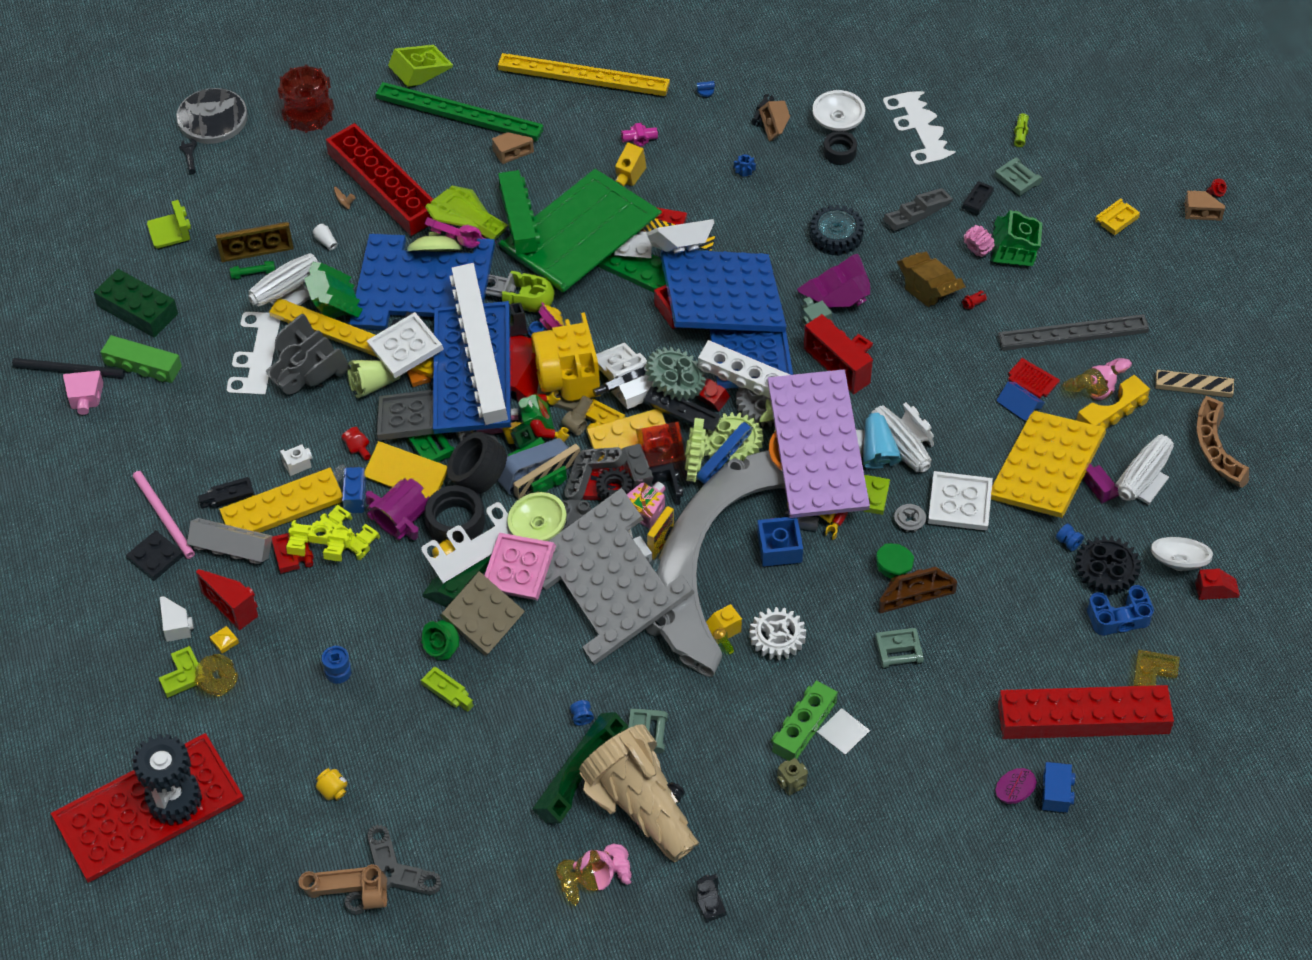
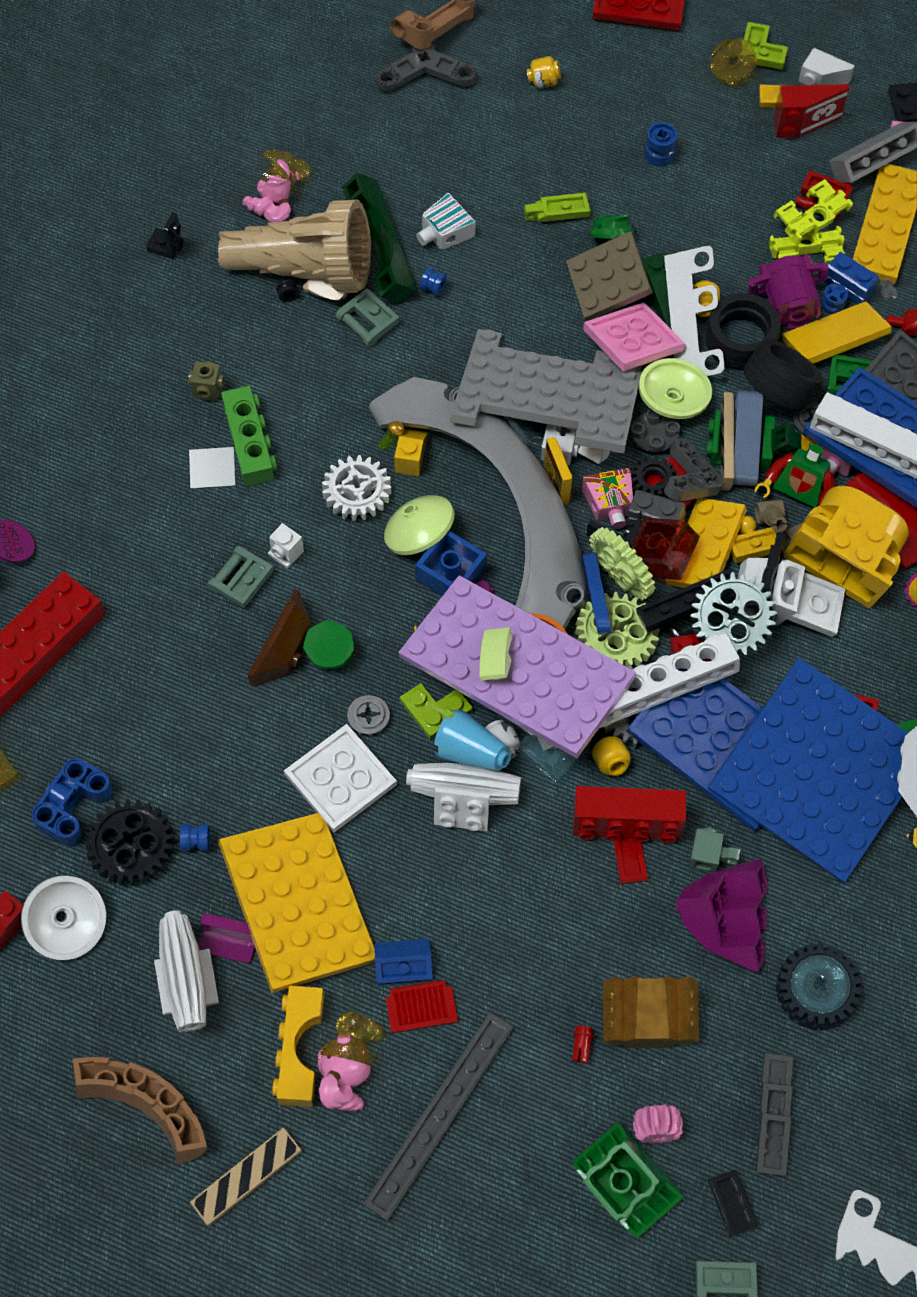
camera: 130 degrees right, 10 degrees up
(377, 486) = (838, 294): none -> blue wheel
(527, 742) = (446, 224): none -> white torso
(756, 580) = (419, 524): none -> yellowish green dish
(828, 443) = (494, 654): none -> yellowish green slope
(856, 637) = (285, 546): none -> white brick

